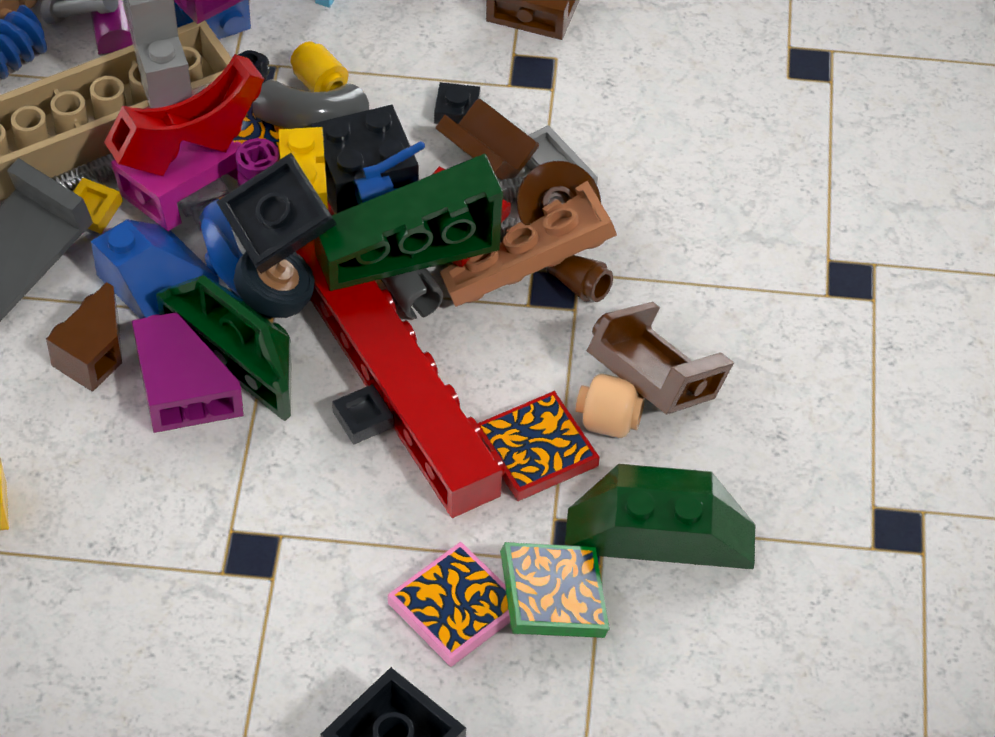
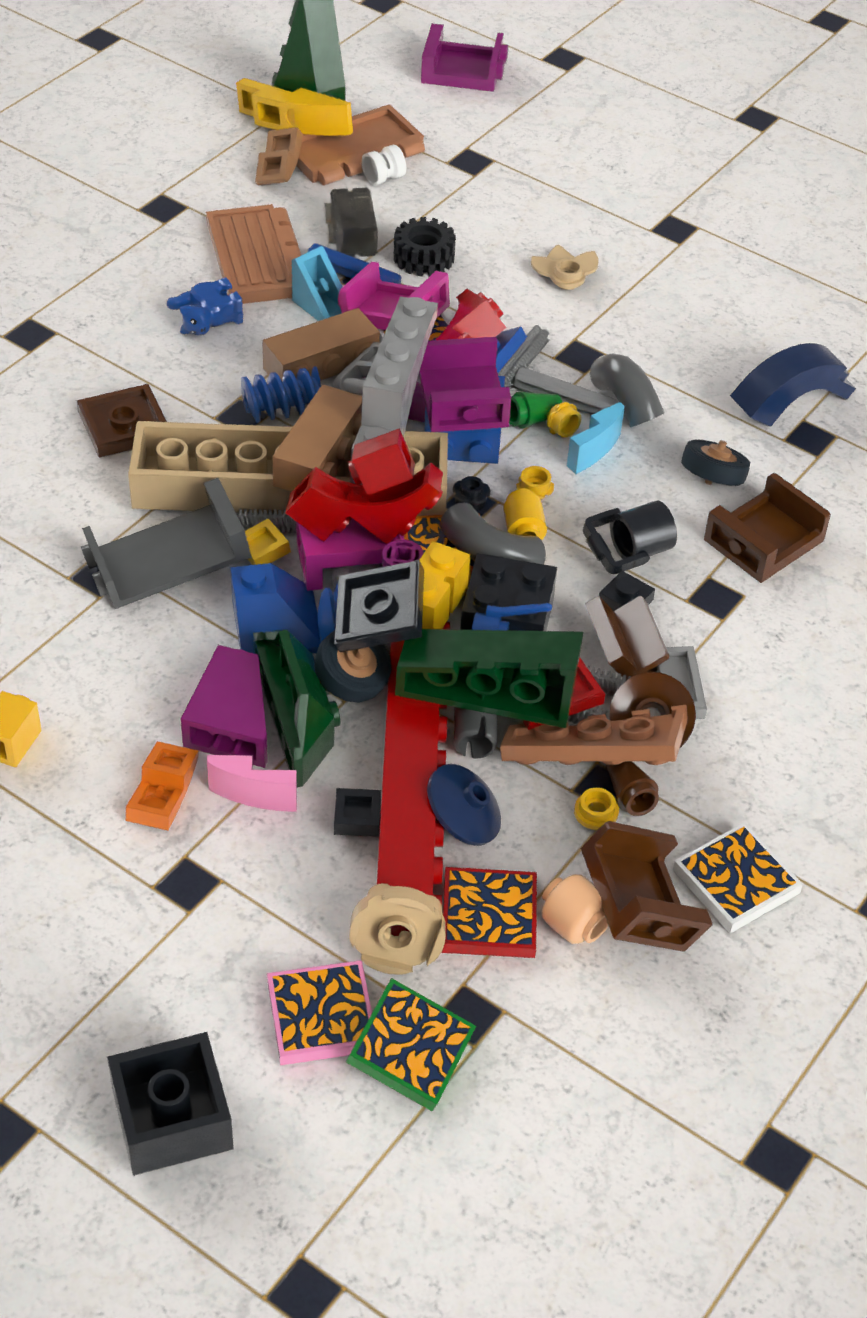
camera: 30 degrees right, 5 degrees down
(89, 340) = (183, 646): reddish brown slope -> none
(96, 75) = (319, 437): none -> medium nougat brick
(166, 477) = (162, 786): none -> orange slope
(187, 74) = (382, 462): none -> red brick
(239, 438) = (265, 789): none -> bright pink slope
(303, 29) = (536, 479): none -> yellow plate
(429, 44) = (634, 534): none -> black piece
(455, 361) = (464, 804): none -> dark blue dish
(466, 483) = (397, 906): none -> tan plate
(565, 302) = (596, 800): none -> yellow plate
(663, 518) = (558, 1033): dark green wedge -> none
(717, 313) = (737, 877): none -> tile

